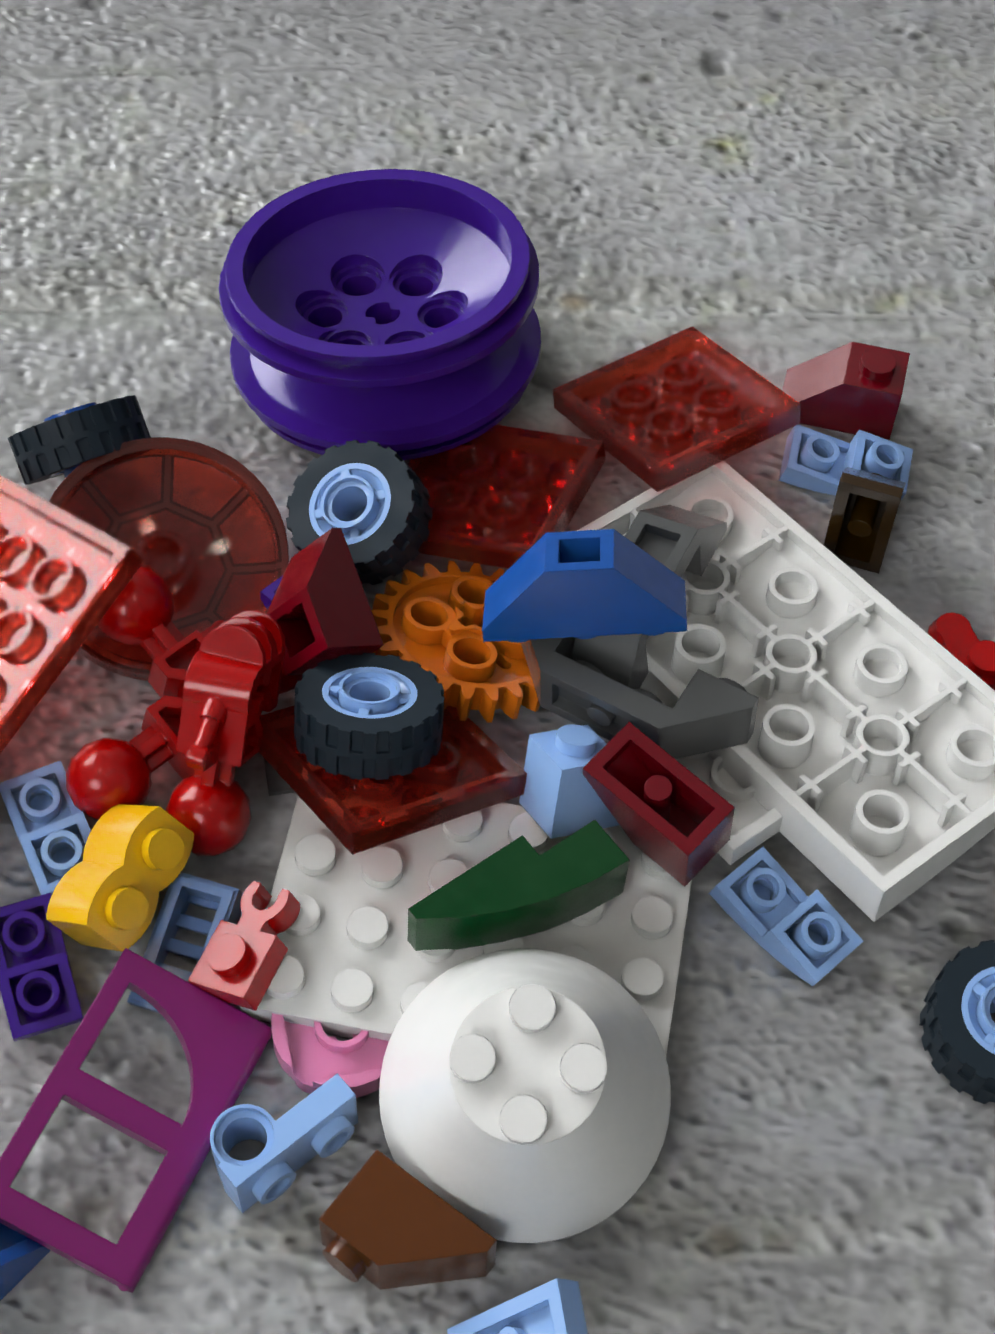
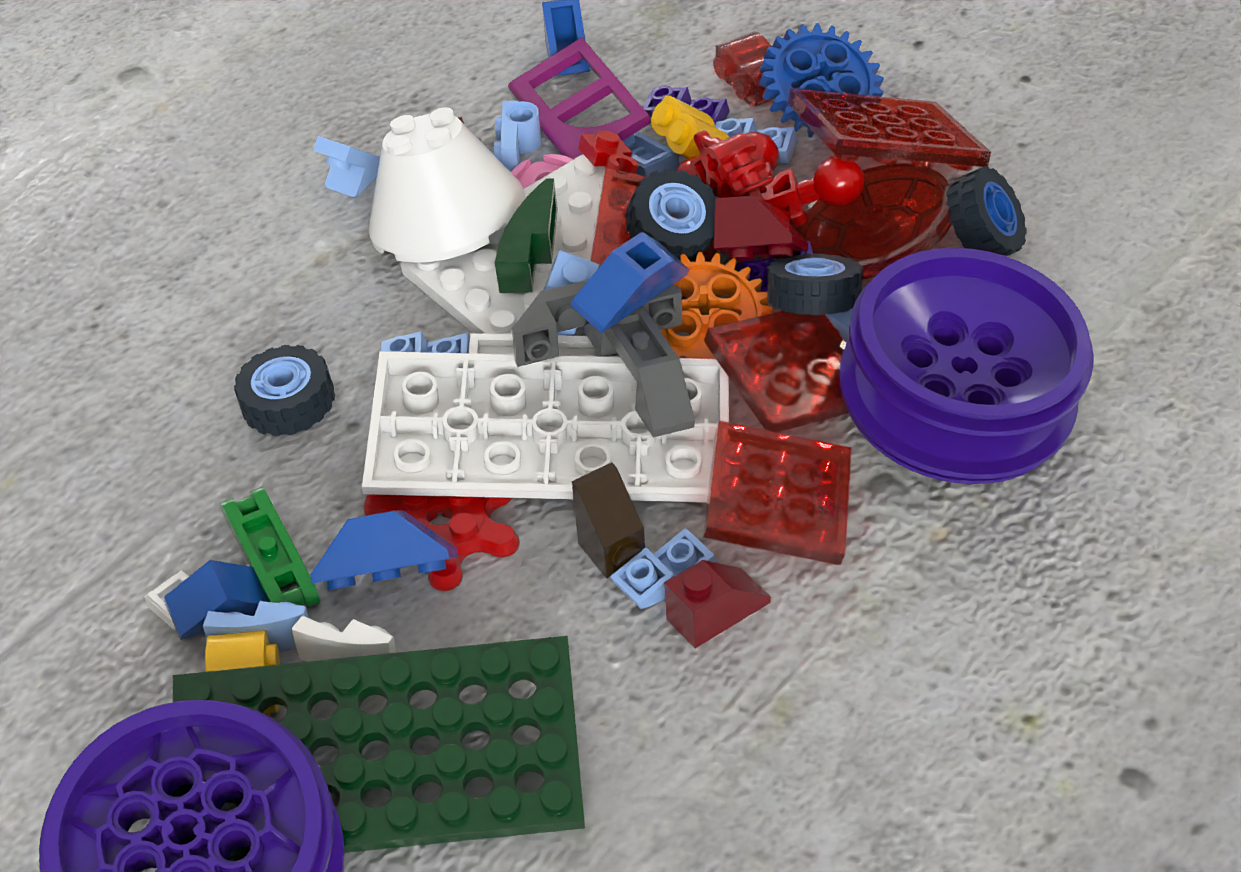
camera: 135 degrees right, 10 degrees down
(660, 803) = (506, 290): dark red slope -> none

